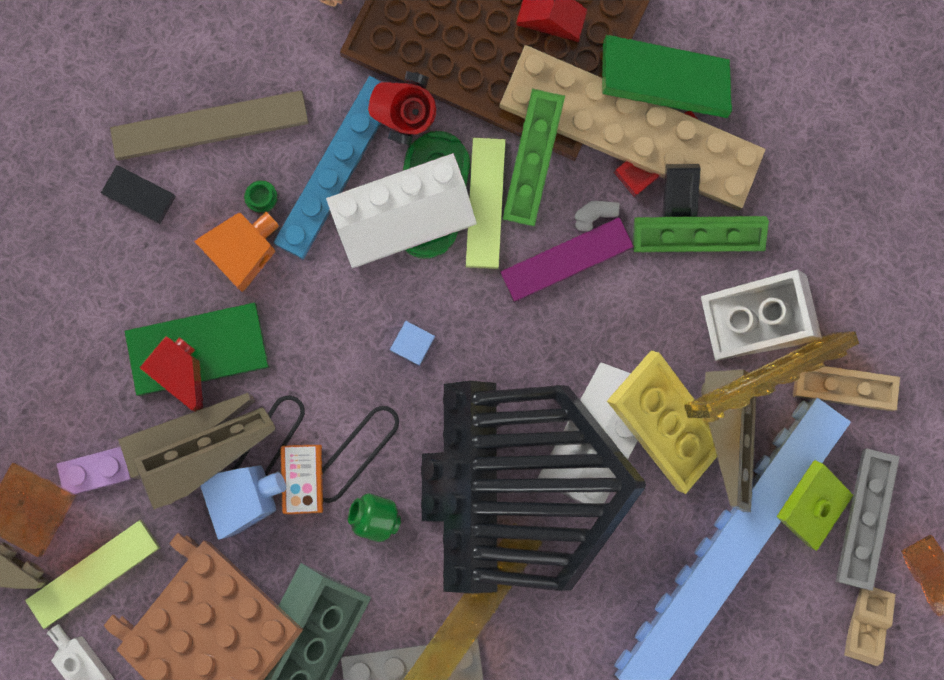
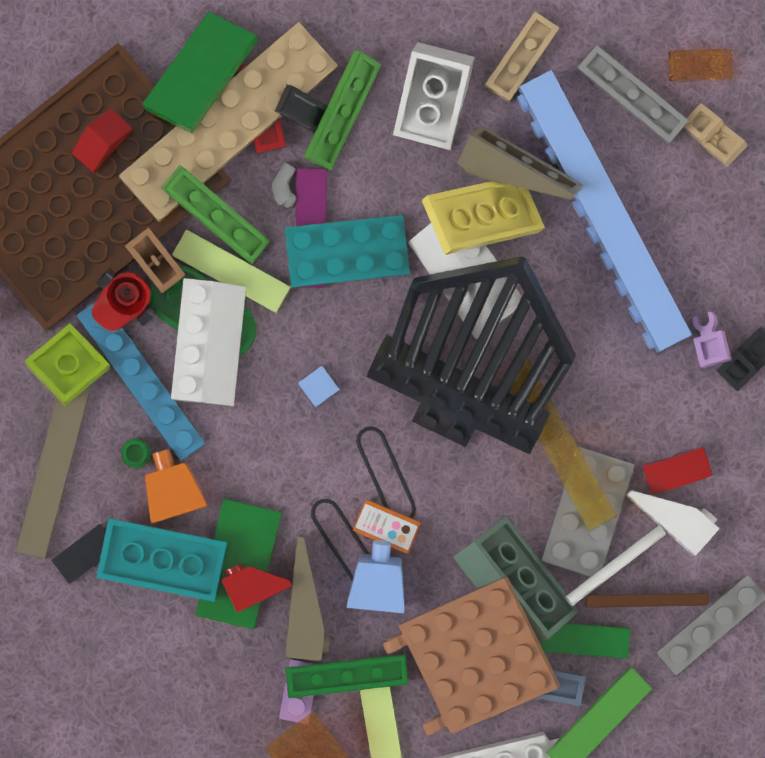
camera: 60 degrees left, 5 degrees up
(128, 511) = (346, 675): none -> green tile
(163, 270) = (161, 560): none -> teal plate
(189, 463) = (332, 603): dark tan slope -> none
(315, 87) = (67, 364): none -> lime plate
(374, 517) = (445, 483): green head -> none
(459, 120) = (155, 260): none -> medium nougat slope
(561, 305) = (346, 251): none -> teal plate
(764, 379) = (486, 123): clear yellow plate -> none
(815, 505) = (602, 131): lime plate -> none

